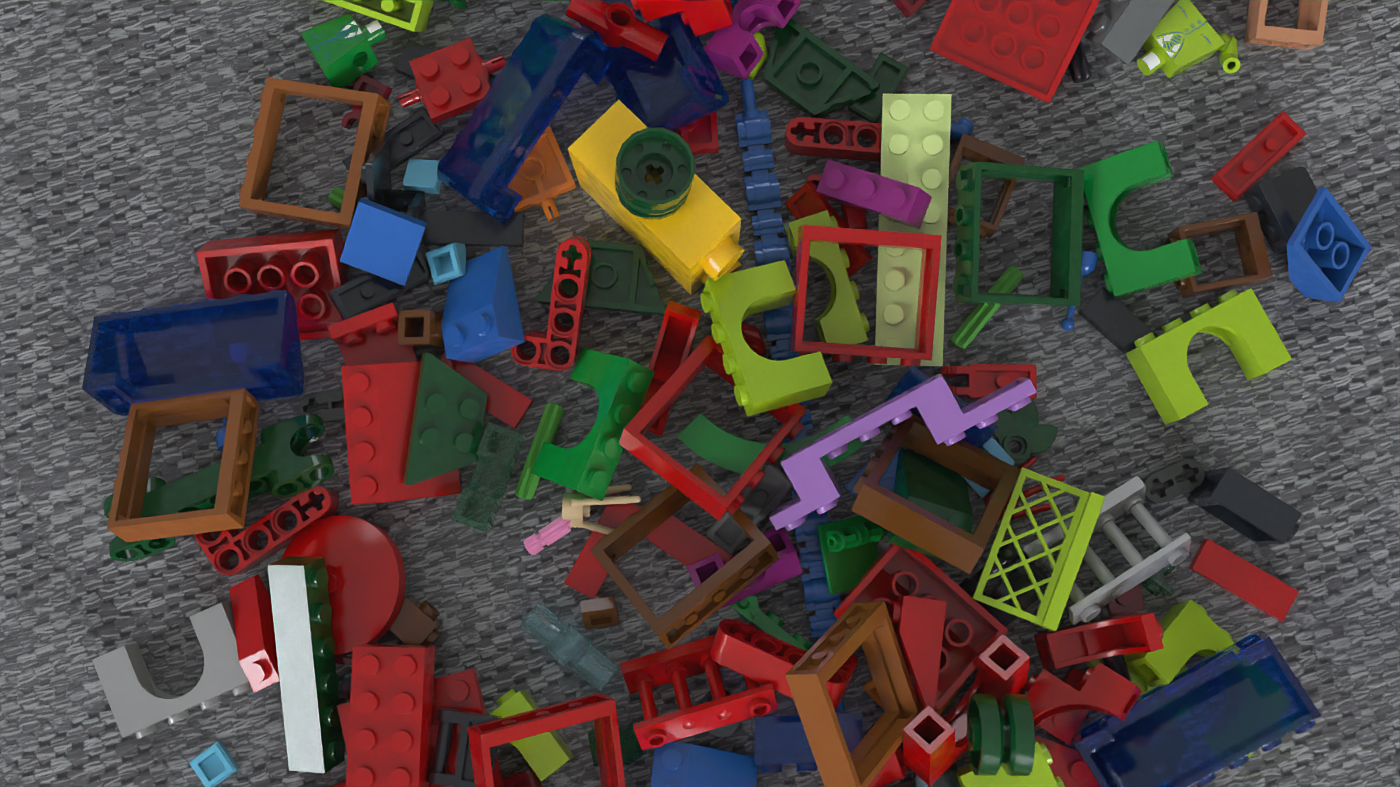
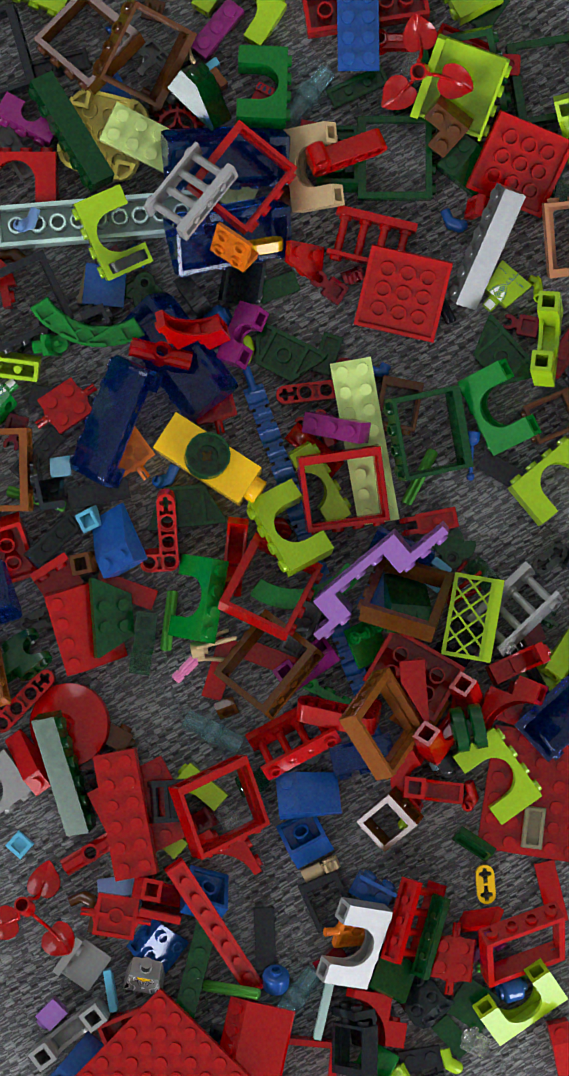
camera: 15 degrees left, 5 degrees up
(383, 241) = (50, 517): blue tile -> none
(585, 228) = (166, 479): none -> blue arm
(1054, 466) = (477, 565): none -> clear green bracket
(1151, 119) = (498, 344): none -> dark green wing
(1199, 108) = (526, 325): none -> dark red plate
(1235, 137) = (545, 358): none -> lime arch

